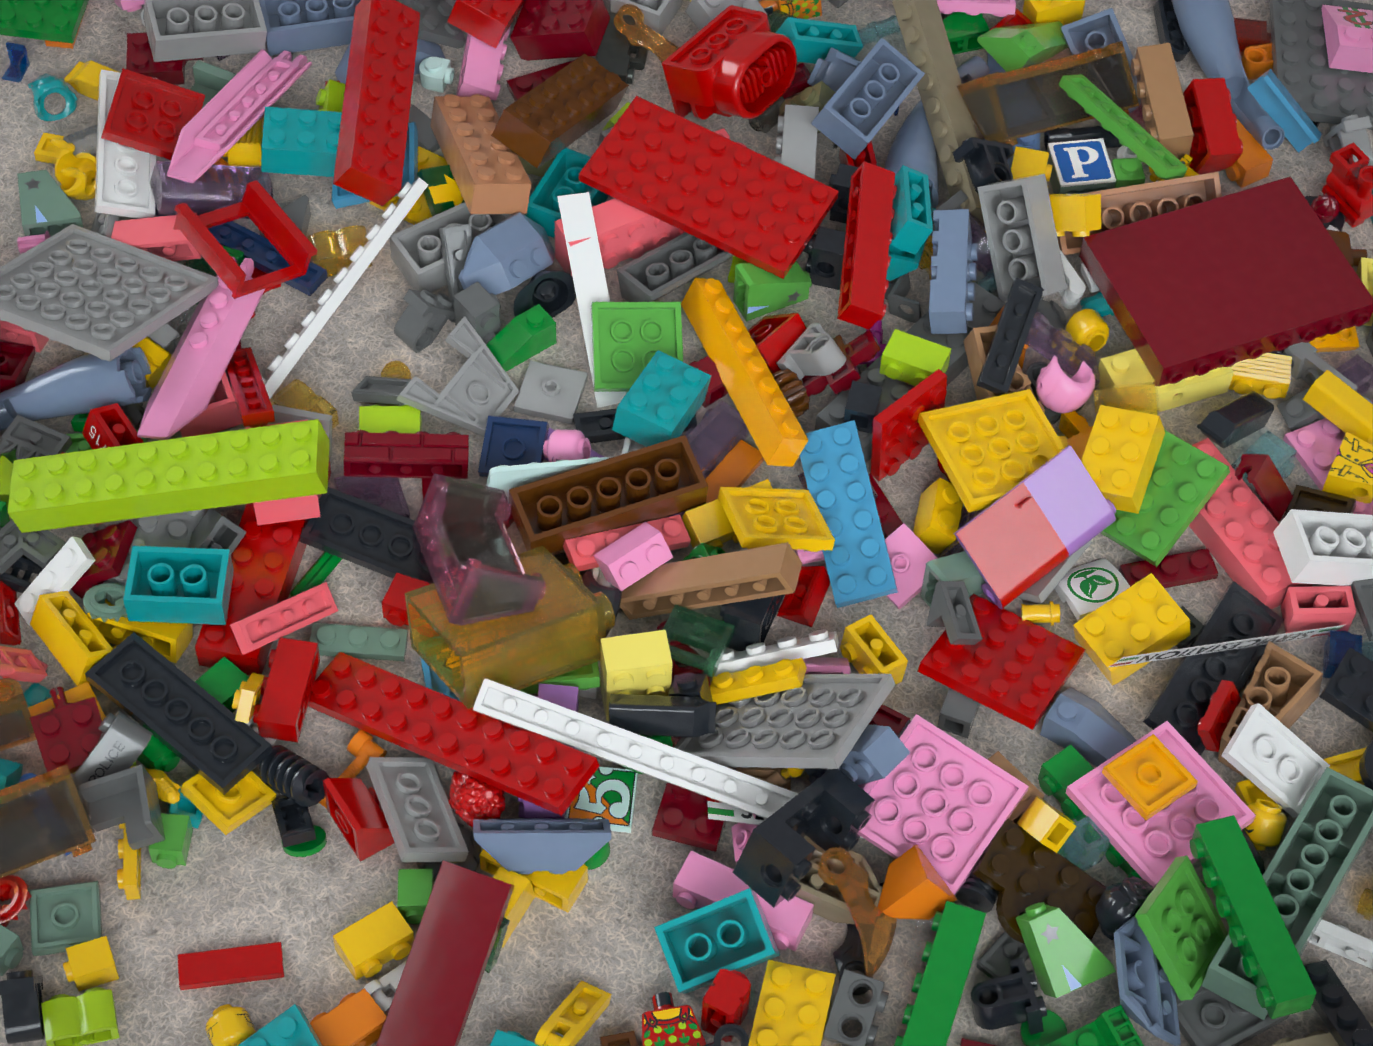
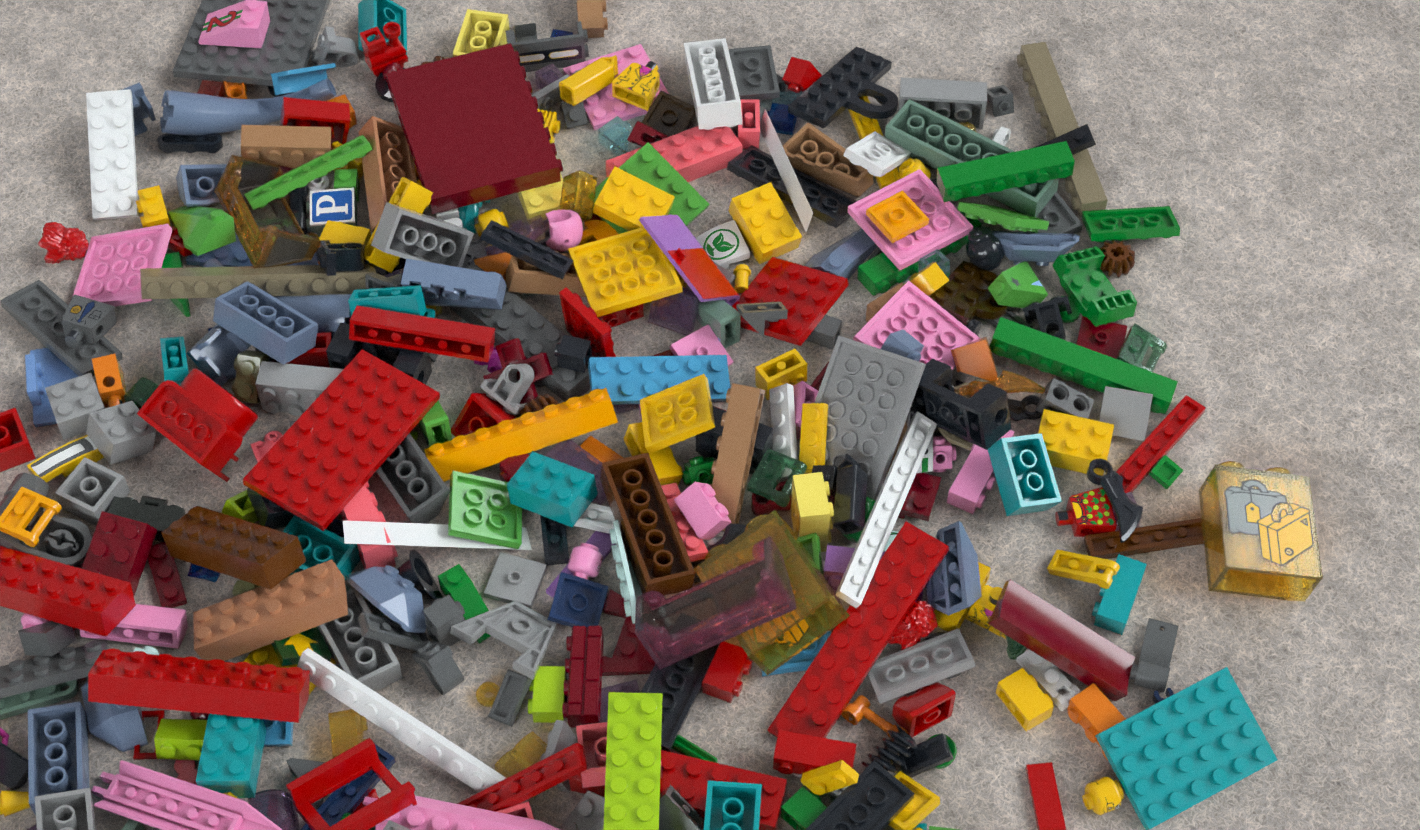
camera: 85 degrees left, 0 degrees up
(283, 618) = (750, 758): coral plate -> none
(360, 641) = (755, 719): sand green plate -> none
(414, 893) = (986, 673): bright green brick -> none
(641, 34) = (161, 476): clear orange piece -> none
(725, 1002) = (1070, 472): red brick -> none
(876, 30) = (153, 332): clear light blue pin -> none
(912, 358) = (532, 317): lime brick -> none
(938, 515) = (659, 326): yellow brick -> none
(1174, 569) = (711, 216): dark red plate -> none
(1218, 715) = (828, 181): red plate -> none
(1237, 419) = (588, 144): black piece -> none

